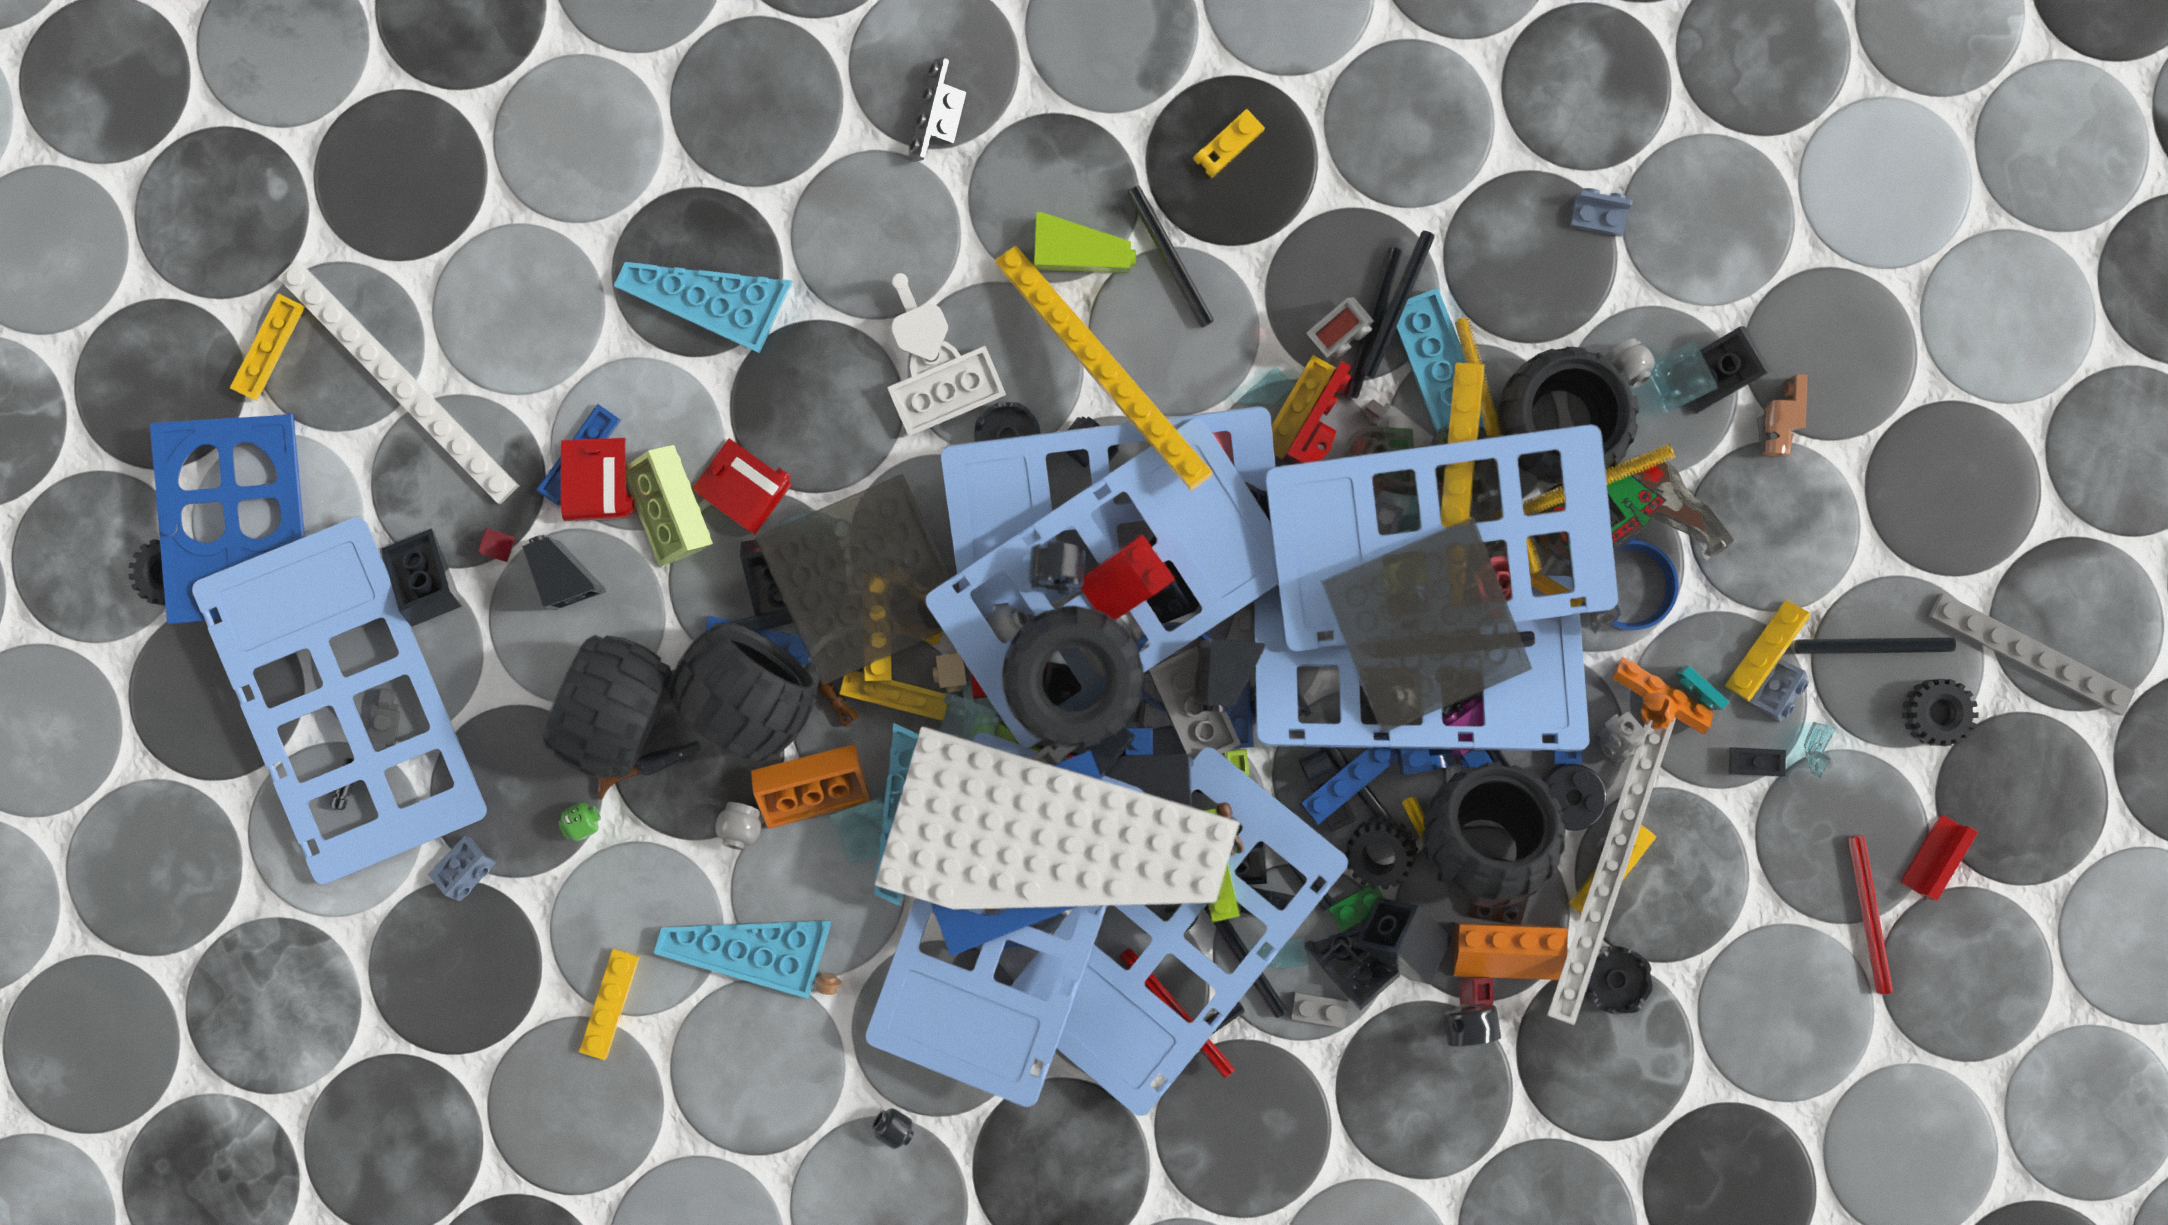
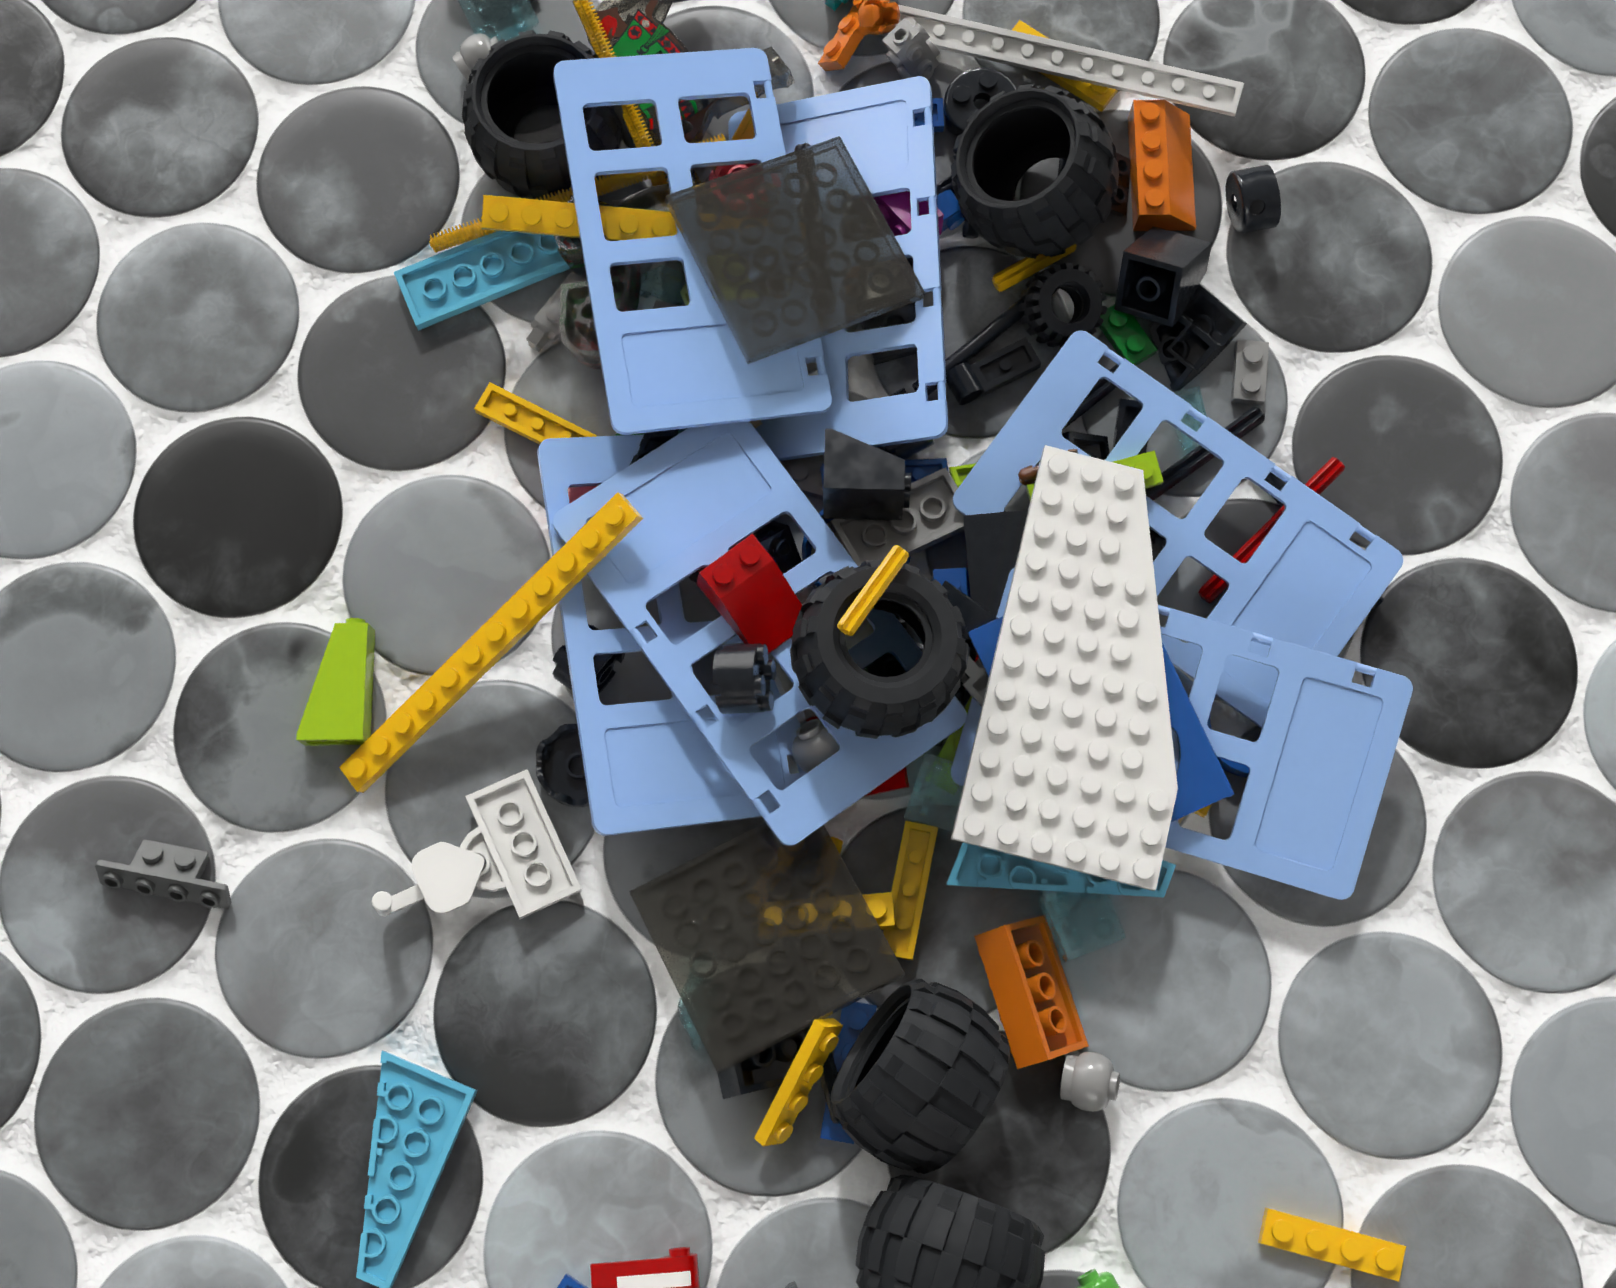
camera: 90 degrees left, 10 degrees down
(651, 764) = (1013, 1196): black piece -> none
(666, 505) = (678, 1202): yellowish green slope -> none
(742, 486) = (652, 1099): red door -> none
(747, 599) = (801, 1076): none -> yellow plate
(766, 954) = (1248, 1042): medium azure wing -> none
(827, 983) = (1278, 957): medium nougat plate -> none
(838, 703) = (923, 963): reddish brown piece -> none
(893, 1128) = (1449, 864): black head -> none
(950, 672) = (876, 820): tan brick -> none
(1108, 671) = (873, 590): none -> yellow axle
(1170, 256) = (353, 581): black axle -> none
(1229, 143) = (215, 517): yellow plate -> none
(1268, 389) = (515, 459): clear light blue slope -> none
(1313, 431) = (571, 400): red plate -> none
(1340, 328) = (440, 371): light grey piece -> none
(1348, 781) = (984, 347): blue plate -> none
(1376, 313) = (435, 344): black axle -> none
(1397, 304) = (414, 313): black axle -> none
(1423, 760) = (954, 272): blue arch -> none
(1476, 990) = (1211, 203): dark red slope -> none
(1600, 212) = (306, 103): sand blue bracket -> none
(1635, 986) = (1188, 35): black plate -> none
(1672, 586) = (738, 14): blue piece -> none

